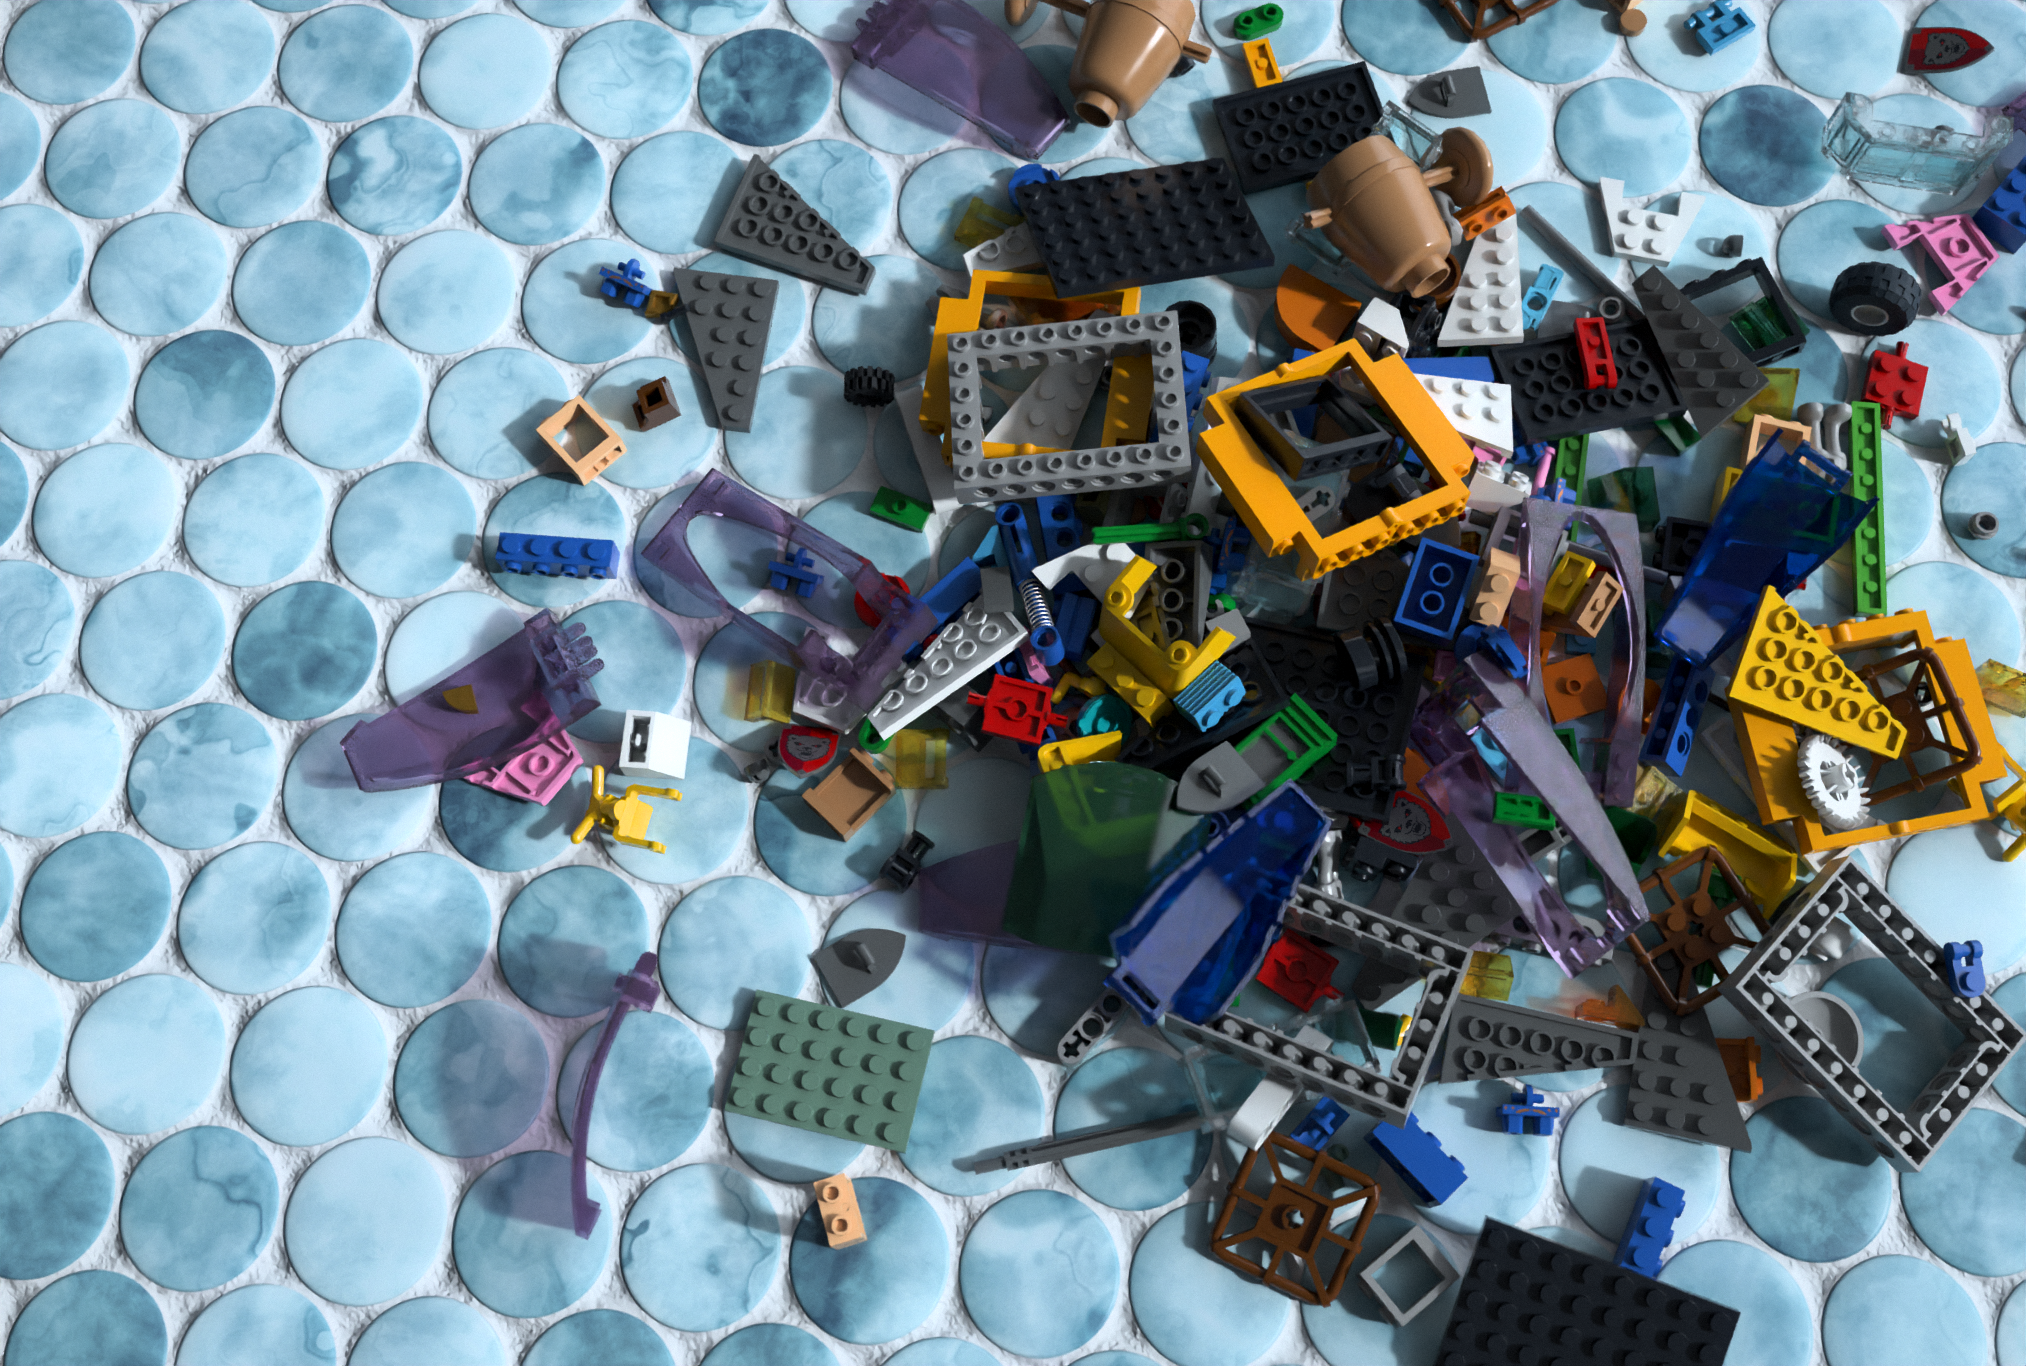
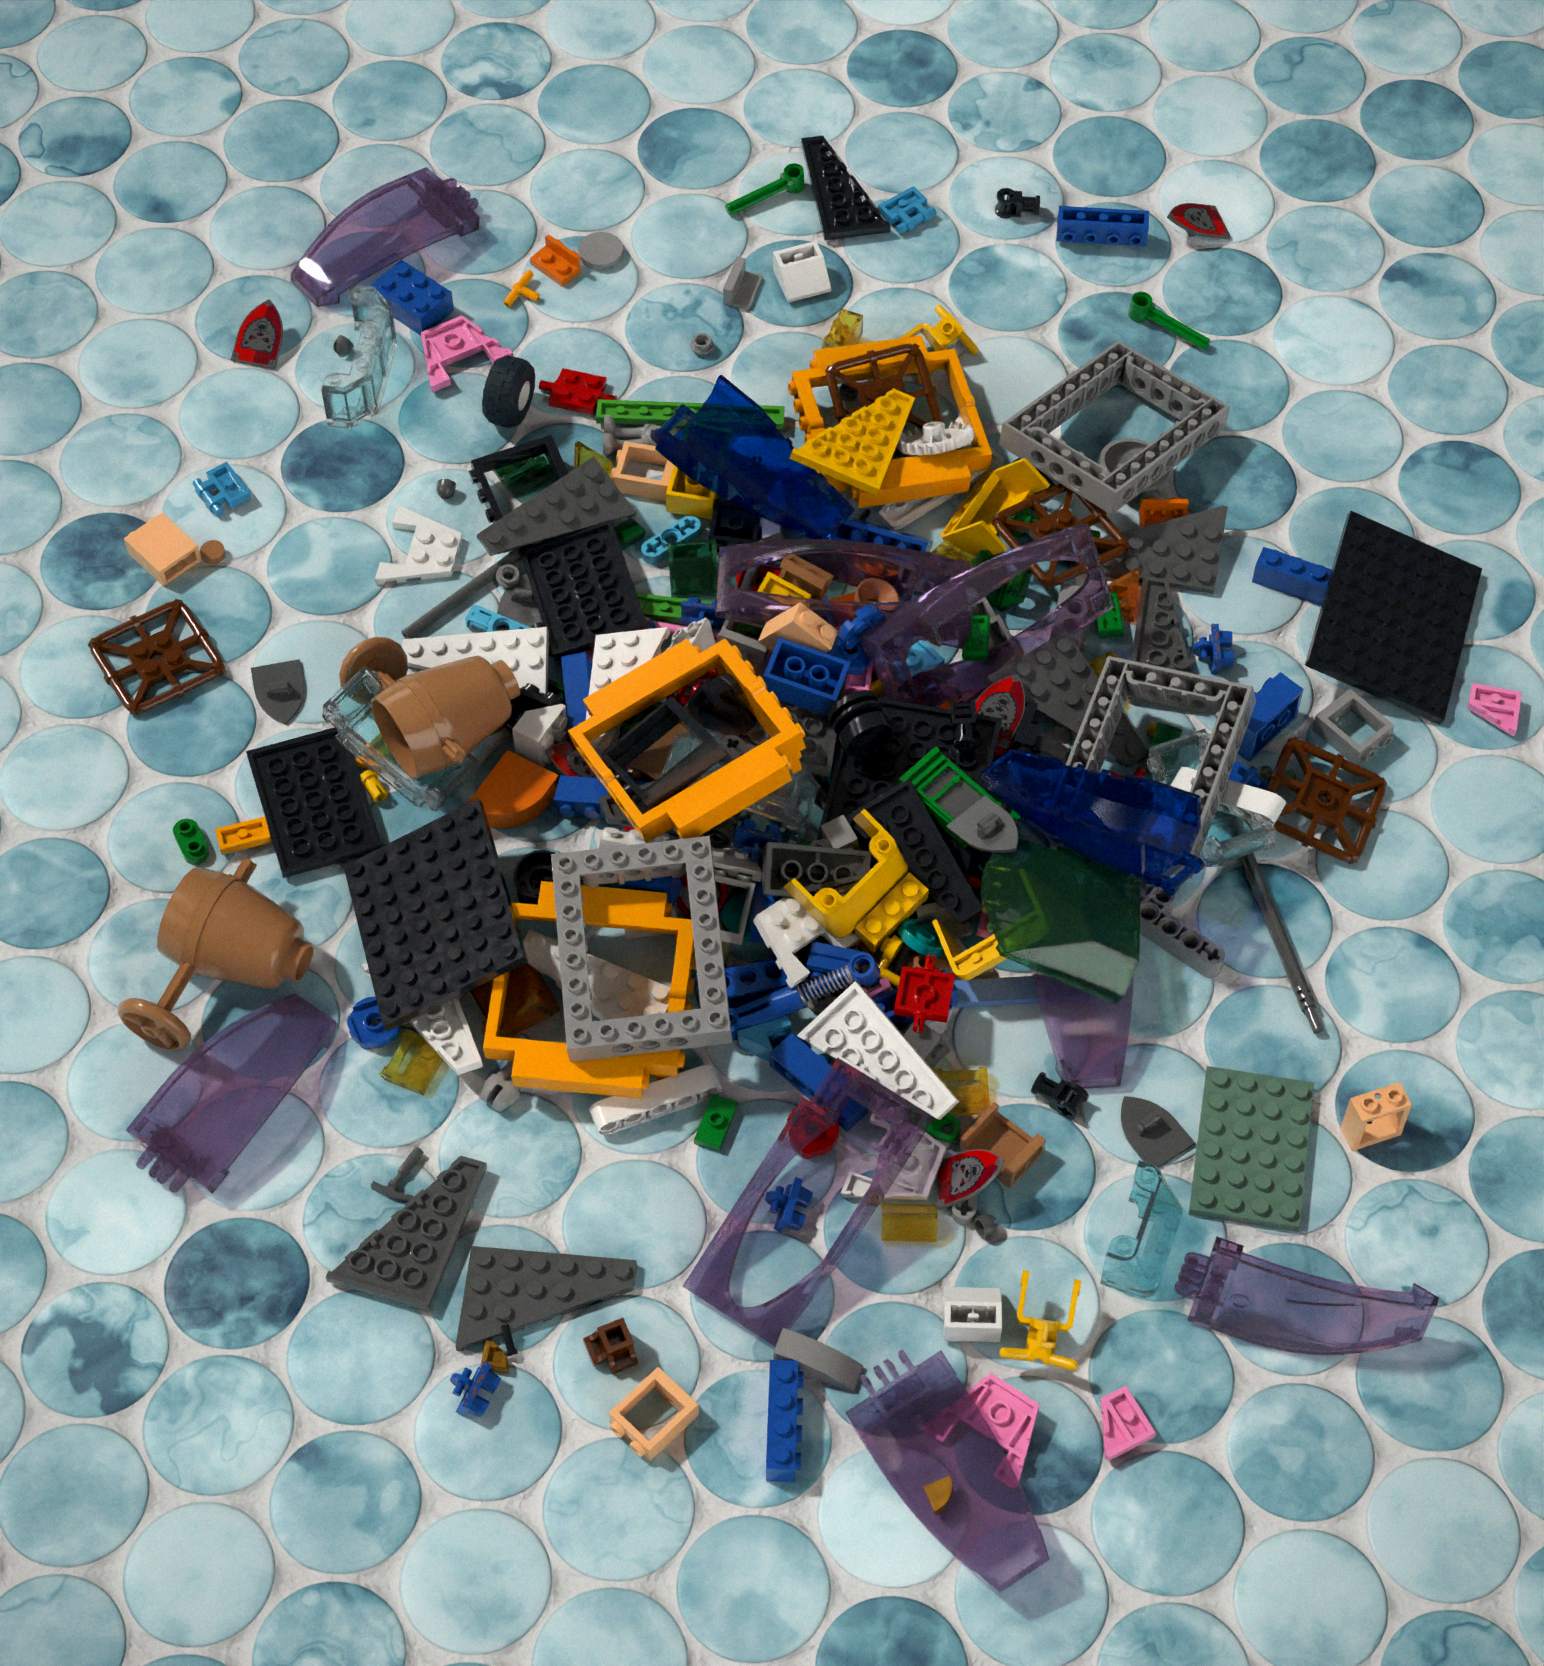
camera: 95 degrees left, 15 degrees down
(518, 891) = (1123, 1423): none -> bright pink wing
(619, 592) = (818, 1360): none -> light grey slope
(746, 953) = (1139, 1262): none -> clear light blue windscreen
(867, 221) = (390, 1190): none -> dark grey piece
(869, 386) = (595, 1148): black tyre -> none
(997, 590) = (808, 1018): dark grey tile -> none
(1152, 532) = (752, 863): green axle -> none
(1210, 696) = (913, 844): dark azure brick -> none
(1485, 214) = (418, 651): orange bracket -> none
(1590, 984) = (1110, 623): none -> green plate
(1595, 353) = (561, 578): red plate -> none
(1597, 699) = (876, 591): none -> nougat piece
(1674, 471) = (675, 530): none -> medium azure beam
(1959, 442) = (631, 353): white plate -> none
(1969, 979) = (1077, 366): blue plate -> none

